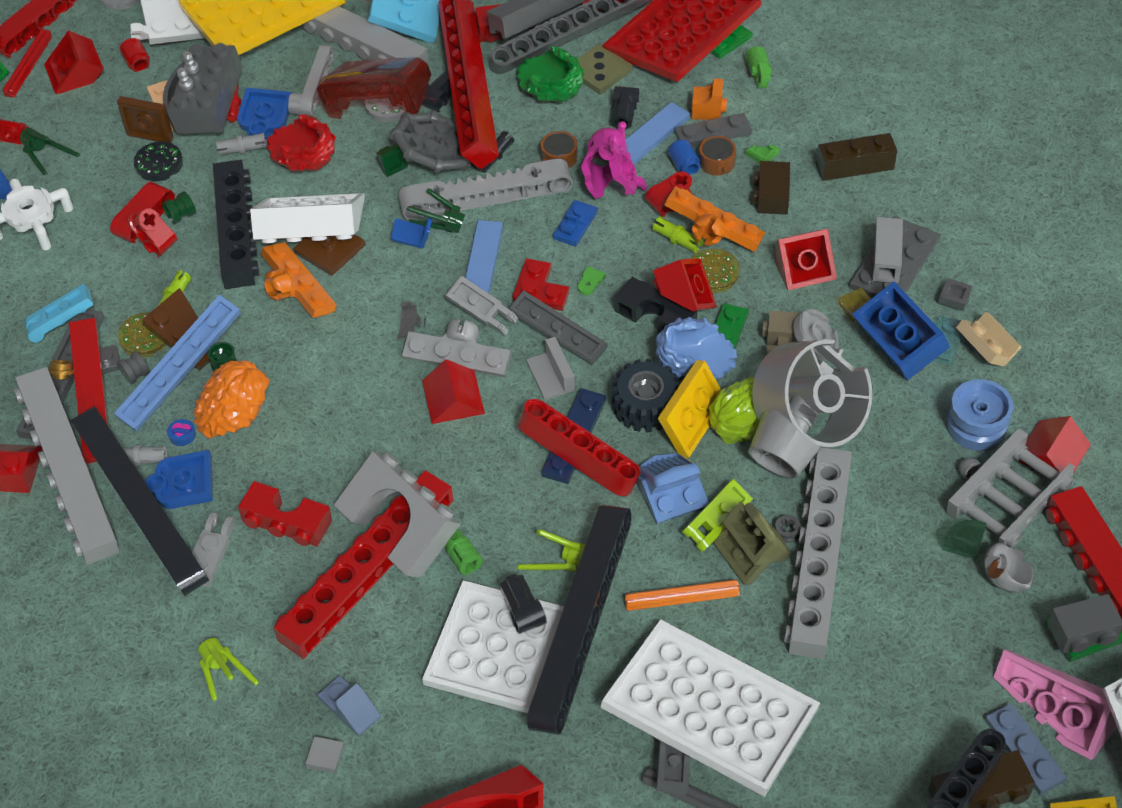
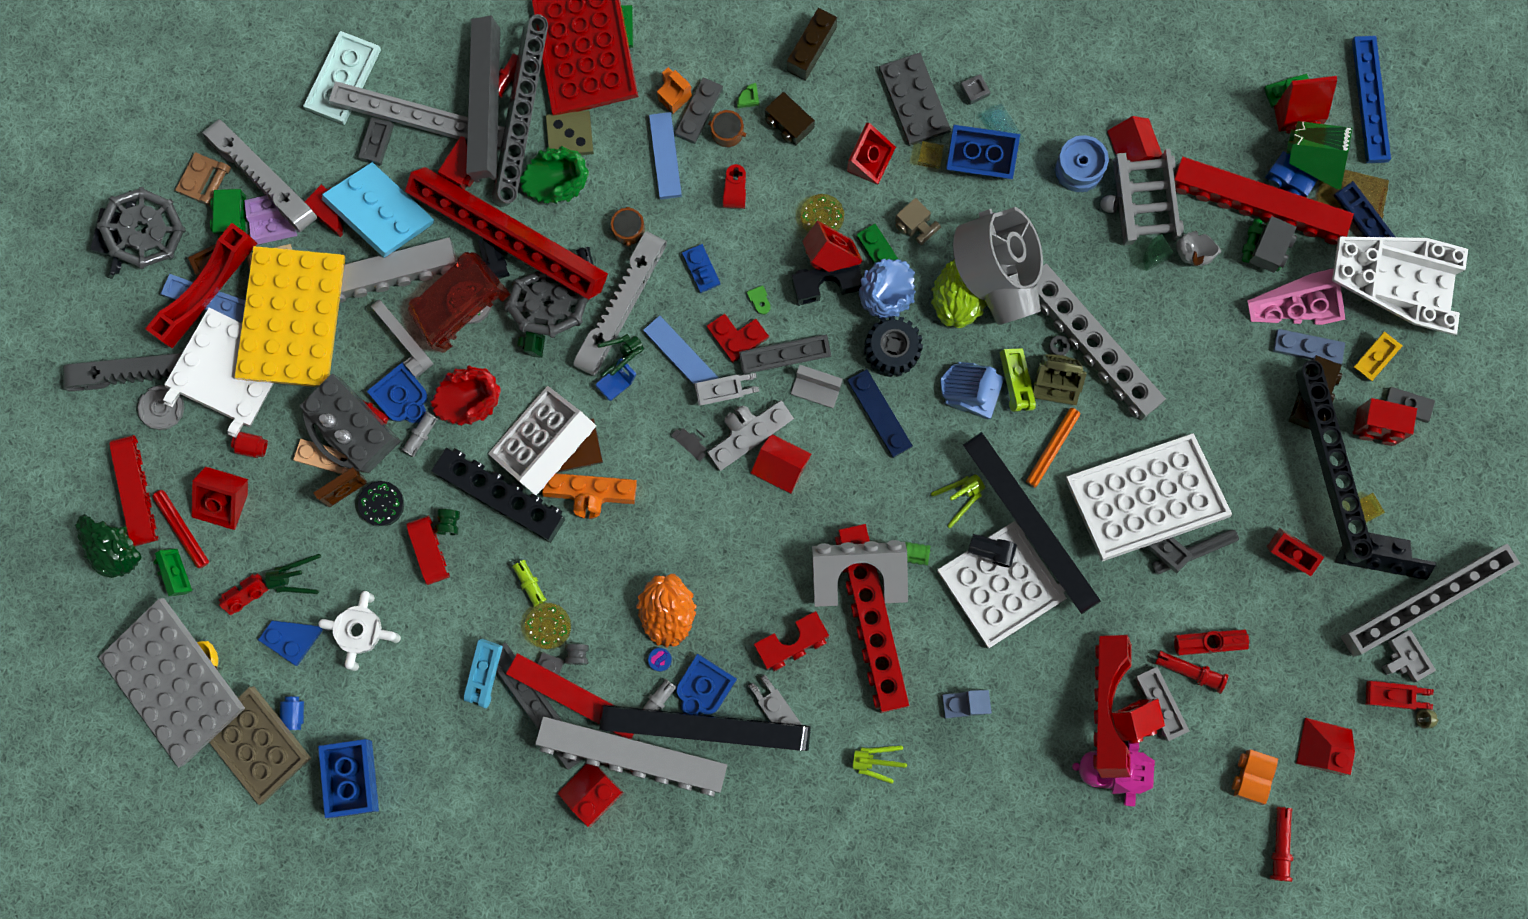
camera: 50 degrees left, 25 degrees up
(60, 369) = (543, 706): pearl gold plate -> none
(152, 231) = (458, 558): red piece -> none
(172, 320) = (571, 599): reddish brown wing -> none
(177, 363) = (605, 623): medium blue plate -> none
(220, 354) = (619, 590): dark green wheel -> none
(325, 755) = (990, 743): light grey tile -> none
(578, 447) = (895, 429): red beam -> none
(611, 146) = (675, 200): dark pink helmet -> none
(624, 105) = (623, 147): black piece -> none
(677, 234) = (773, 213): lime pin -> none
(684, 157) = (709, 150): blue brick -> none
(688, 410) = (931, 329): yellow plate -> none
(713, 222) = (788, 183): orange plate -> none
(759, 66) = (670, 30): bright green hinge -> none
(814, 326) = (936, 203): light grey tile -> none
(887, 249) = (912, 99): light grey brick -> none
(990, 339) = (1029, 103): tan bracket -> none

